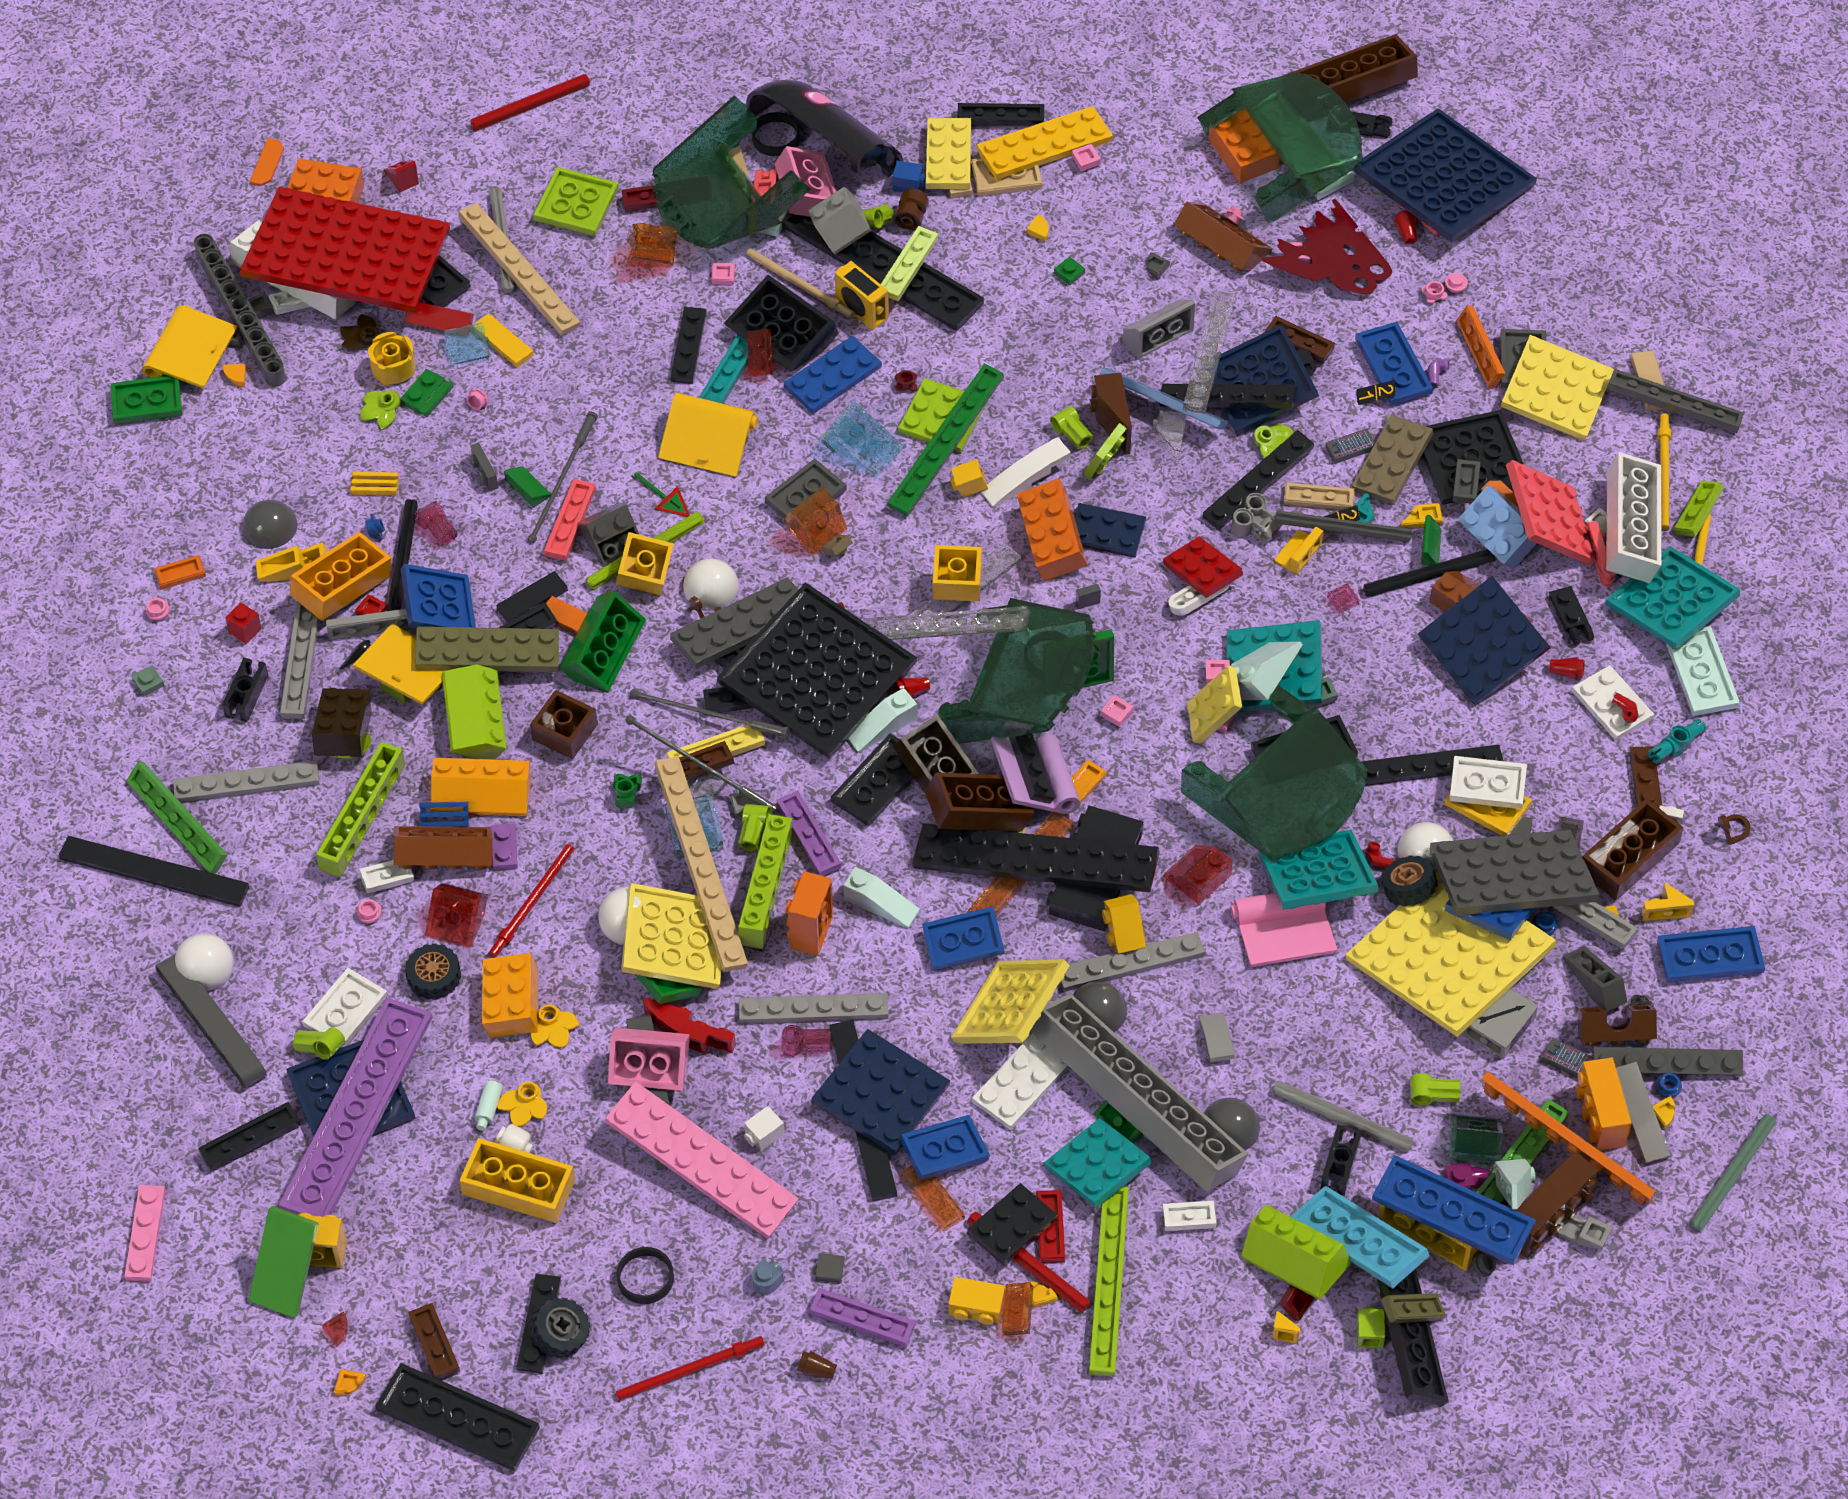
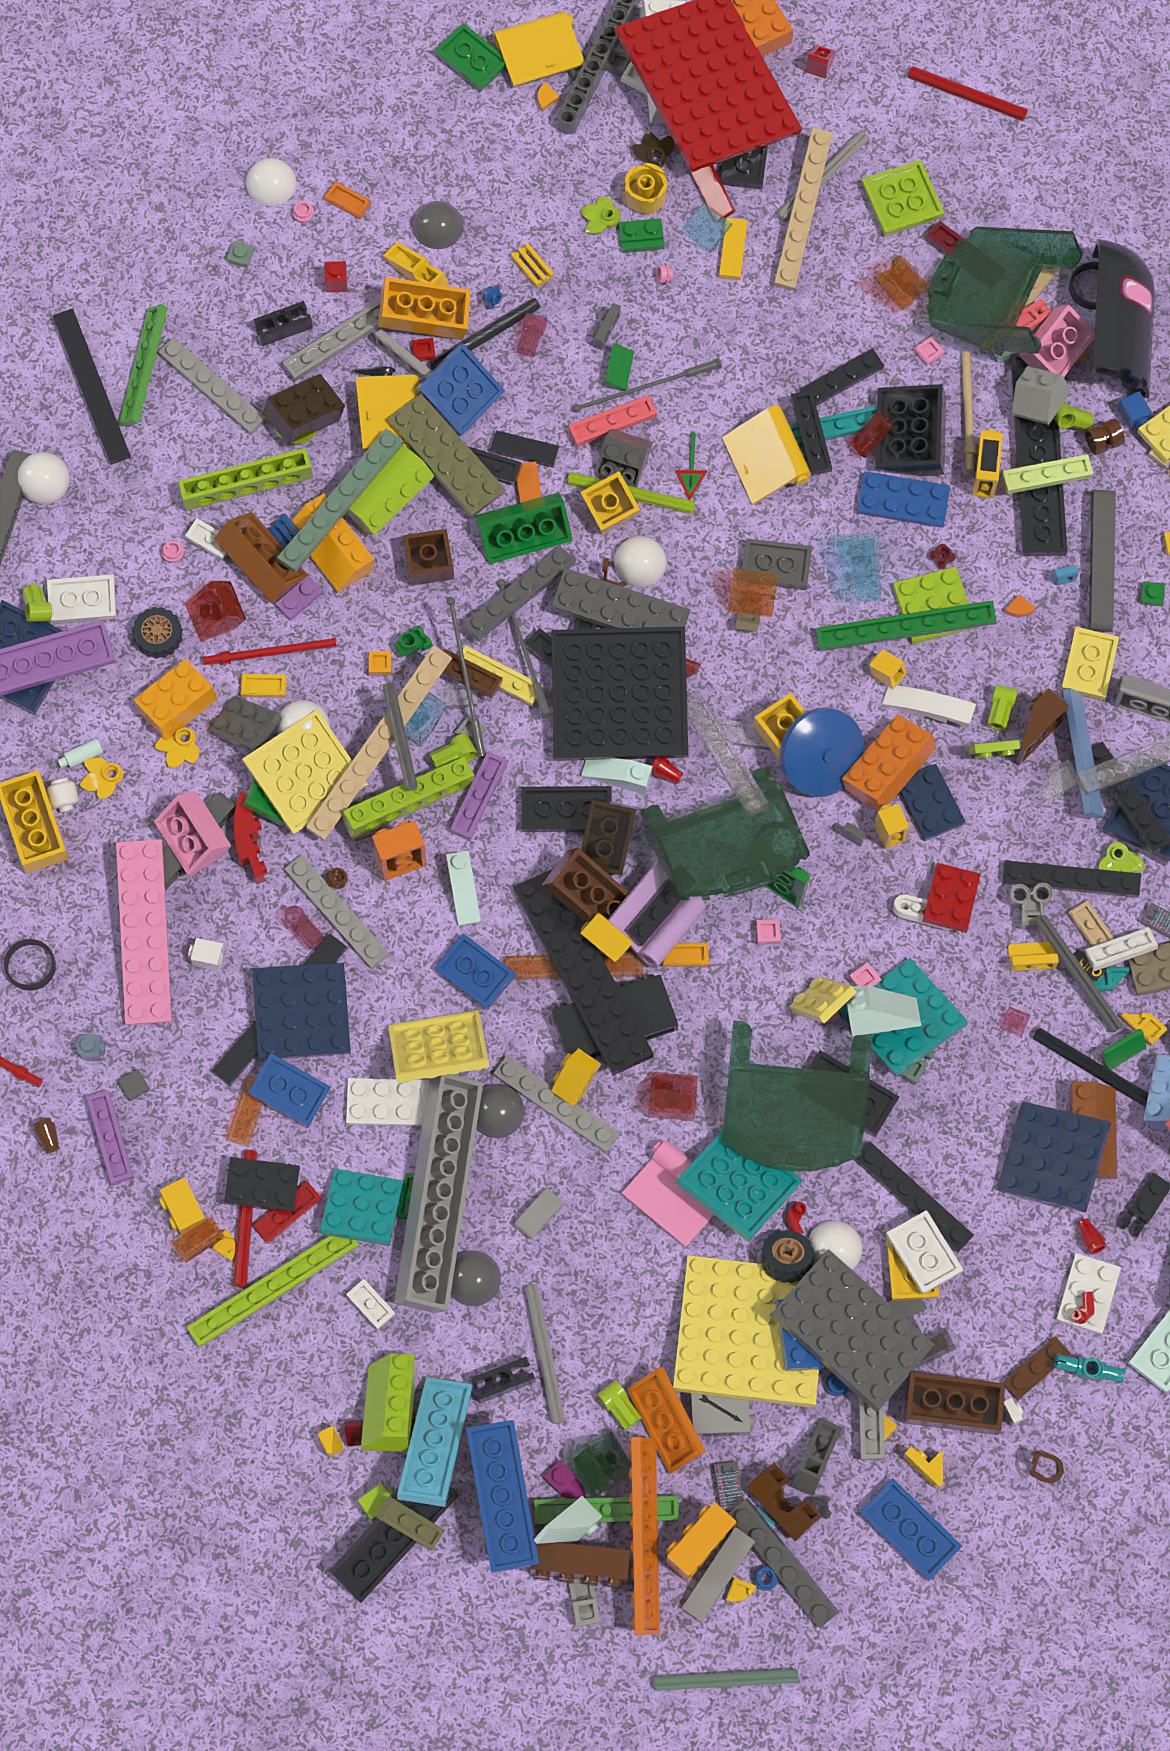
camera: 50 degrees right, 15 degrees up
(104, 615) = (271, 182): none -> white piece
(456, 746) = (340, 500): none -> sand green plate
(557, 926) = (263, 685): none -> yellow tile
(584, 956) = (245, 723): none -> dark grey plate
(621, 825) = (380, 663): none -> light orange plate
(658, 683) = (518, 593): none -> dark grey plate
(714, 838) = (400, 736): none -> flat silver axle
(718, 389) = (811, 432): none -> black plate
(784, 986) = (336, 873): none -> reddish brown plate
(999, 360) = (1020, 607): none -> orange tile
(1001, 312) = (1065, 575): none -> dark azure tile
(1002, 561) = (820, 751): none -> blue dish
(1012, 282) = (1102, 560): none -> dark grey beam
(1024, 815) = (606, 937): none -> yellow panel
(1089, 346) = (1090, 663): none -> light yellow plate
(1106, 562) = (891, 825): none -> yellow brick
(1348, 485) = (1121, 949): none -> white tile
(1471, 1055) = (666, 1420): none -> orange plate

